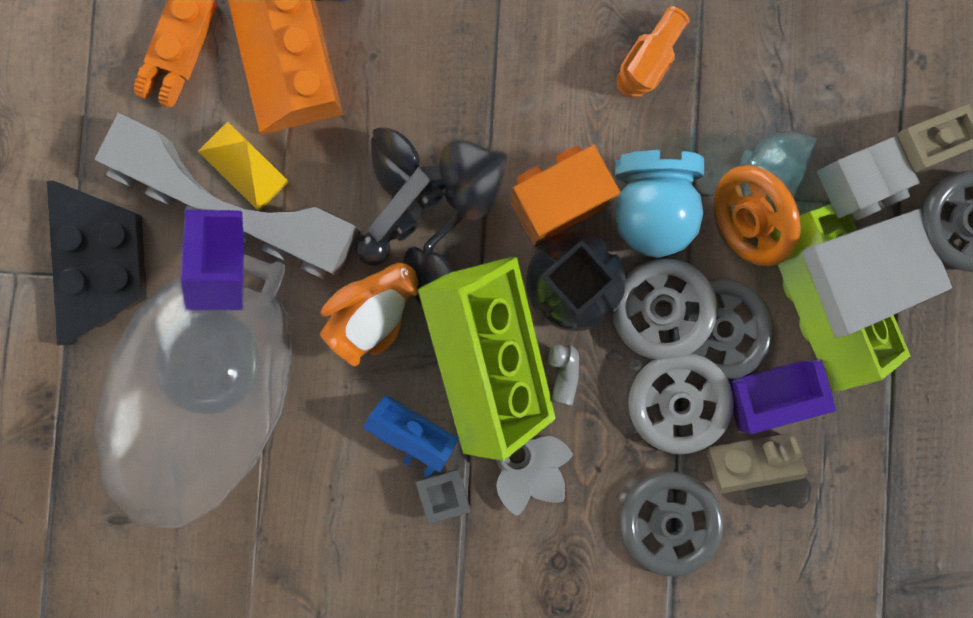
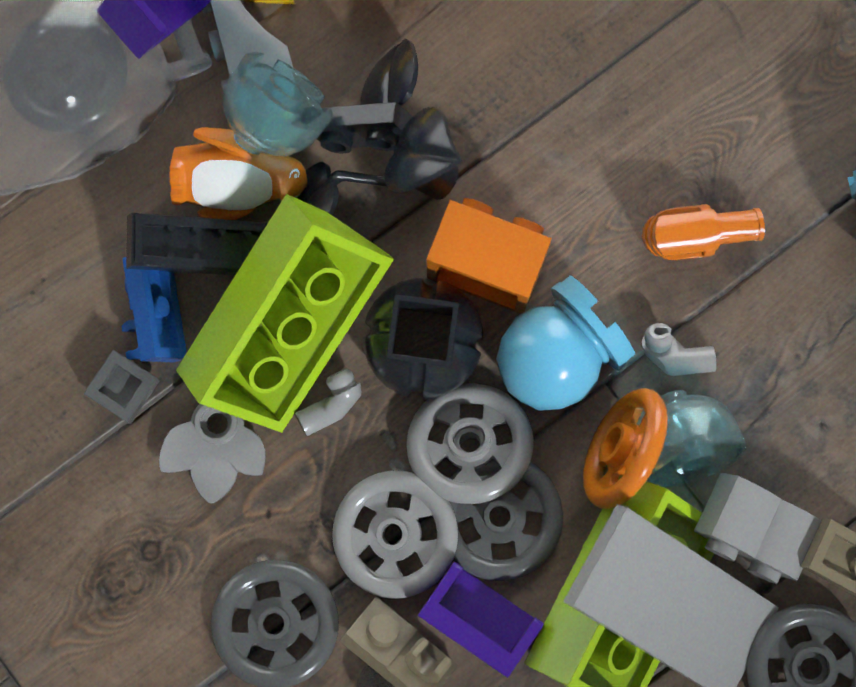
camera: 55 degrees right, 5 degrees down
(351, 249) = (273, 107): none -> clear light blue cylinder
(392, 375) = (189, 243): none -> black plate
(716, 139) = (672, 356): none -> light grey arm

